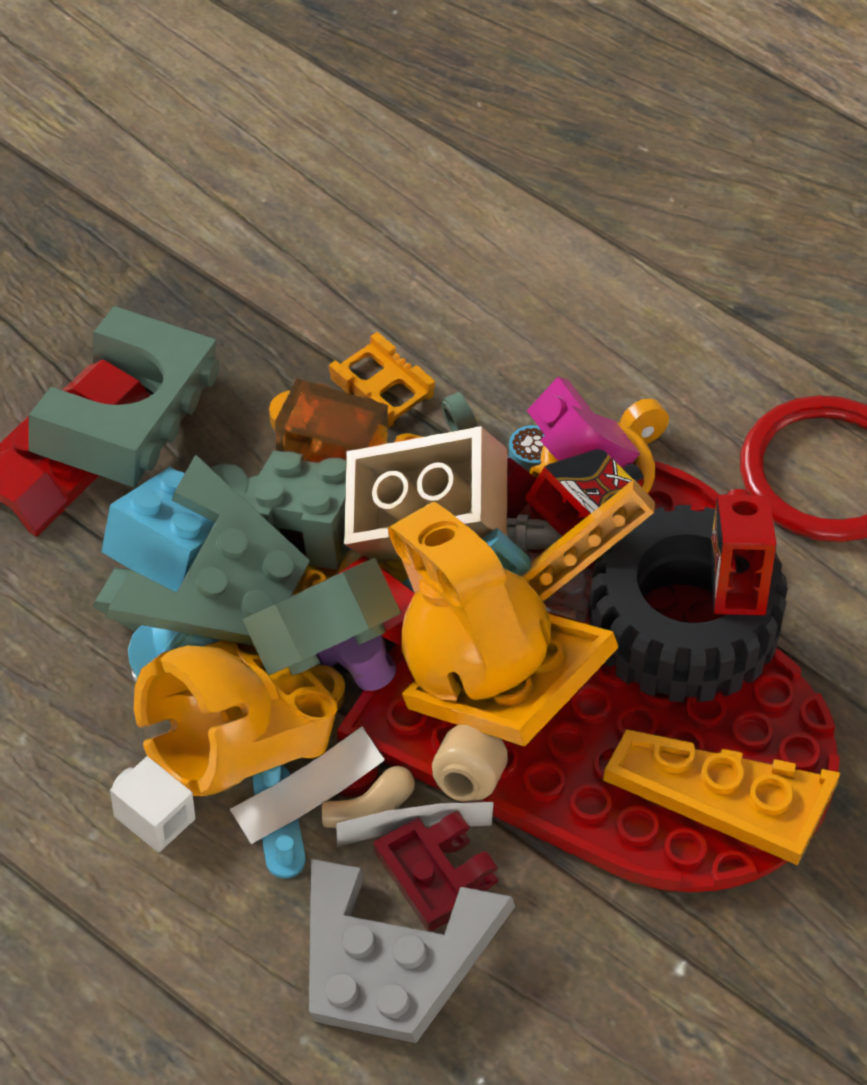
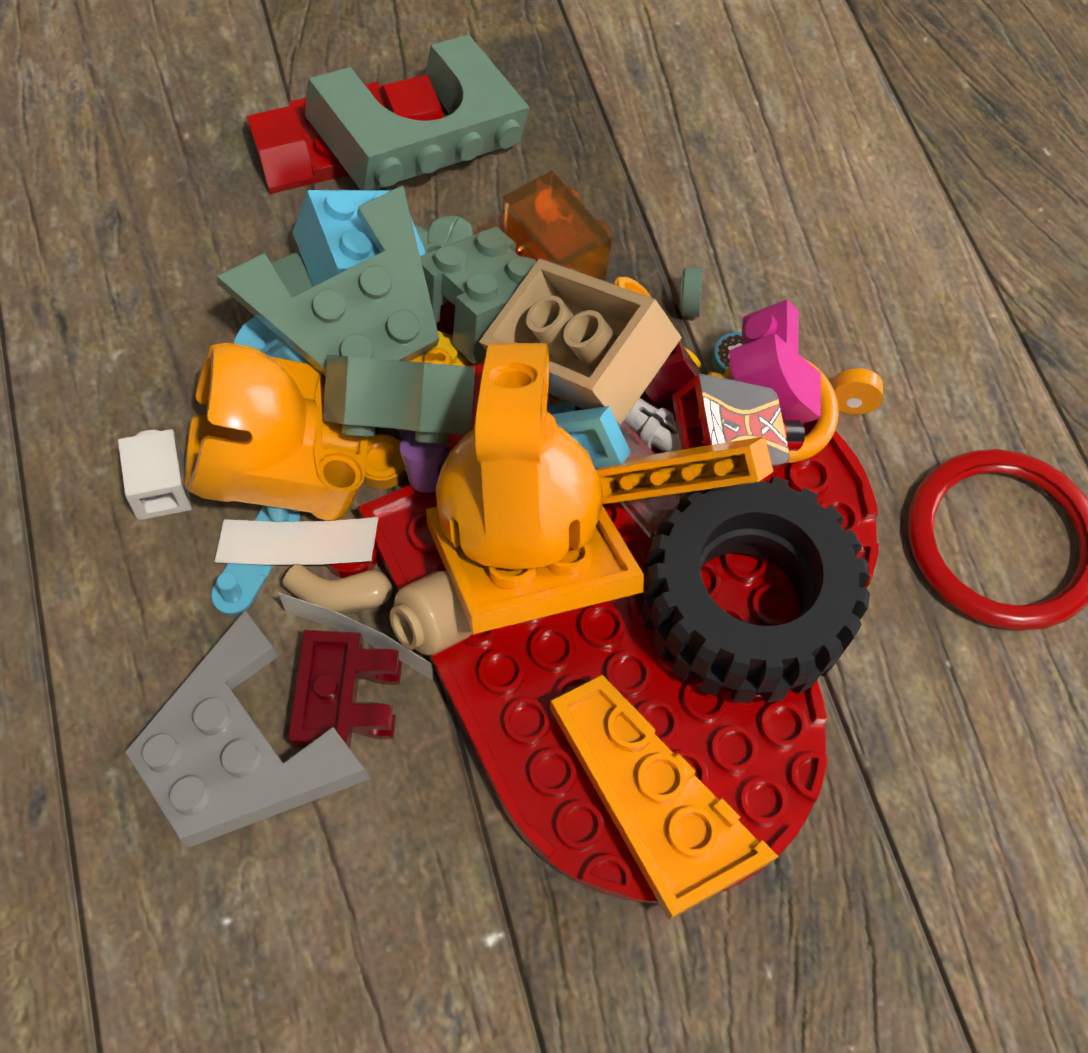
camera: 30 degrees right, 10 degrees up
(393, 372) = (668, 223): light orange piece -> none
(744, 529) = (831, 555): red torso -> none

